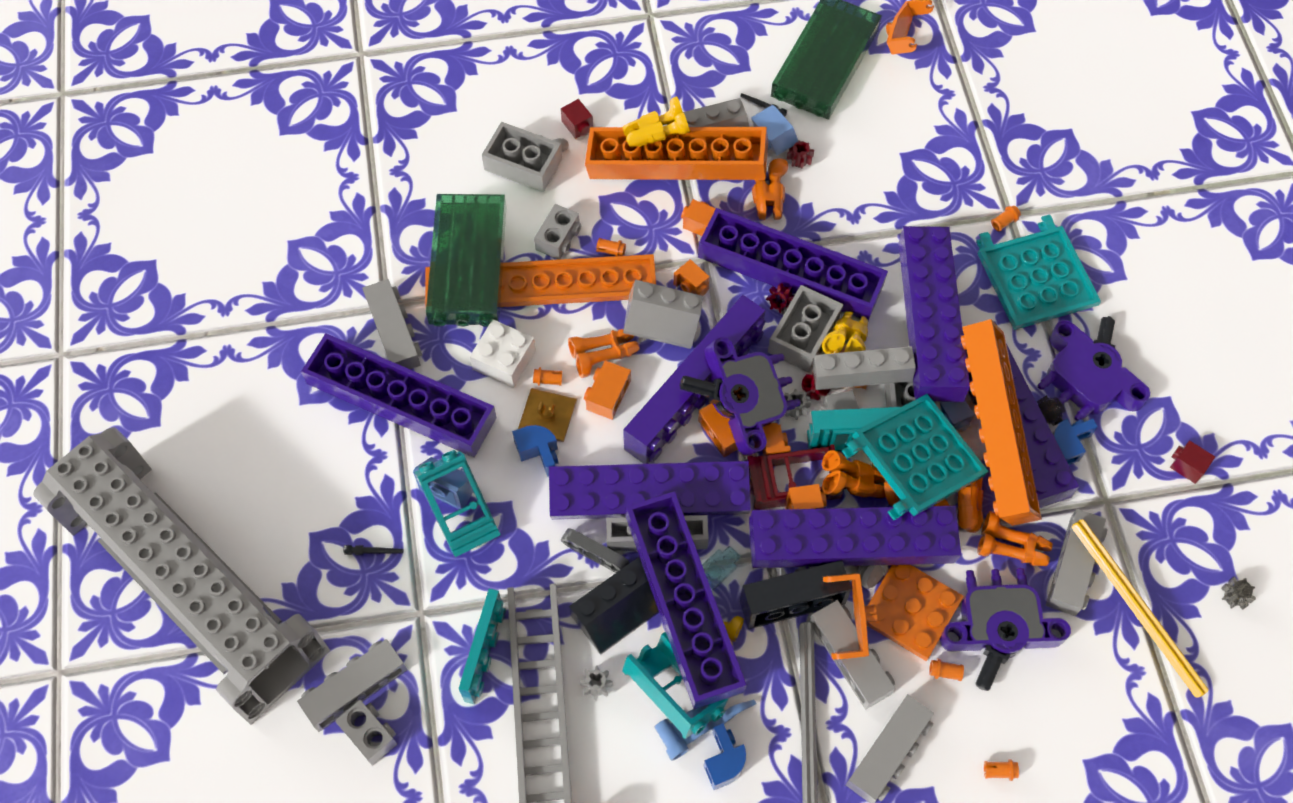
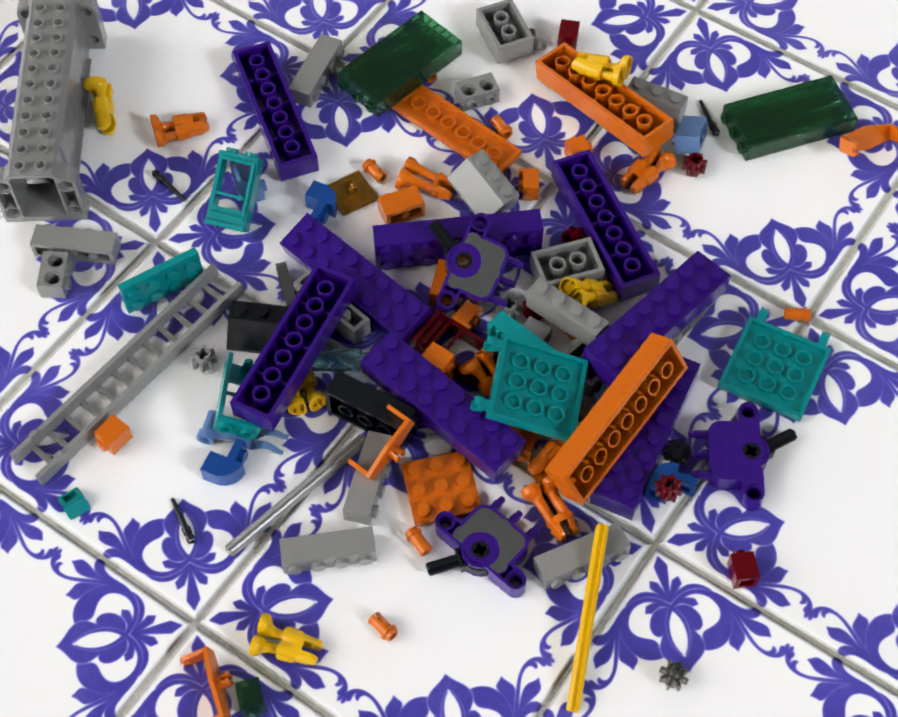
camera: 45 degrees right, 5 degrees down
(225, 527) = (102, 103): none -> yellow piece
(323, 480) = (185, 127): none -> orange piece
(503, 353) = (362, 135): white brick -> none
(1087, 446) = (668, 488): none -> dark red gear

